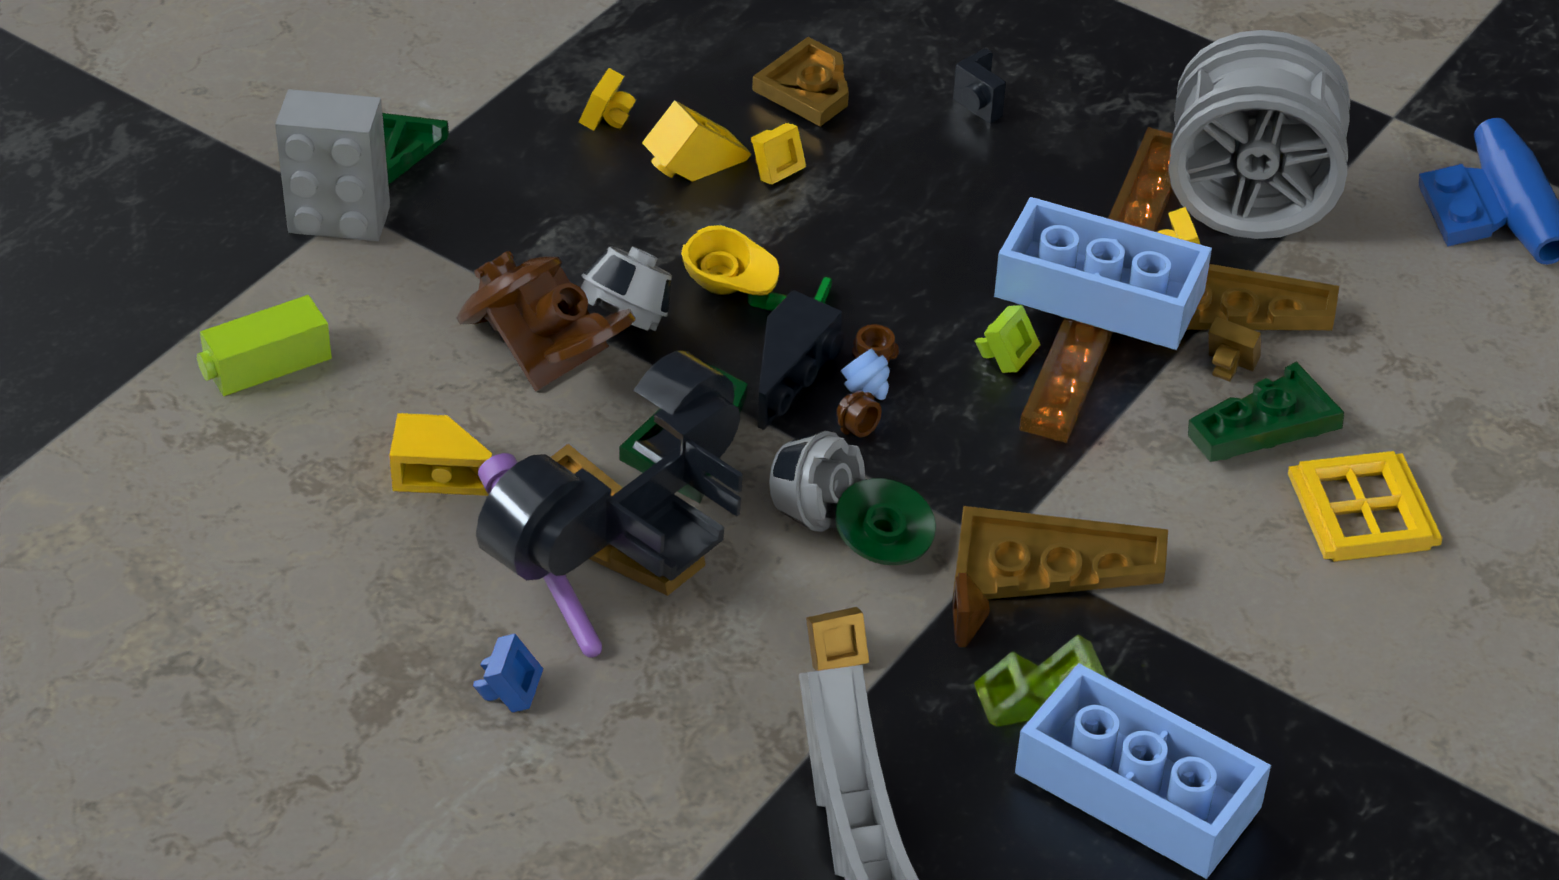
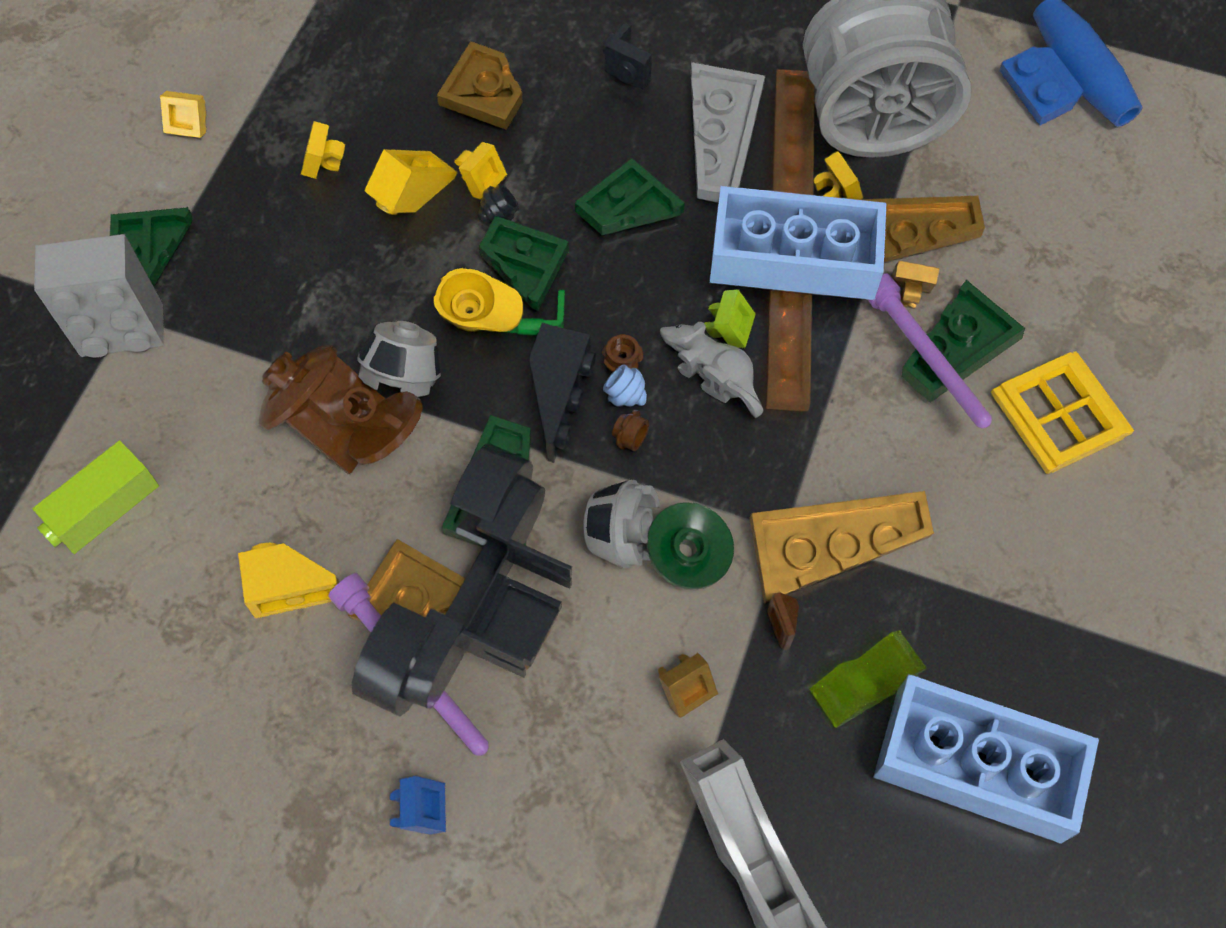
camera: 15 degrees left, 20 degrees up
(471, 41) = (183, 114): none -> yellow tile
(784, 188) = (497, 202): none -> black plate
(797, 239) = (524, 258): none -> dark green wing
(932, 213) = (628, 200): none -> dark green wing
(982, 381) = (723, 367): none -> light grey animal
(1072, 158) = (723, 124): none -> light grey wing
(1195, 356) = (889, 300): none -> medium lavender piece

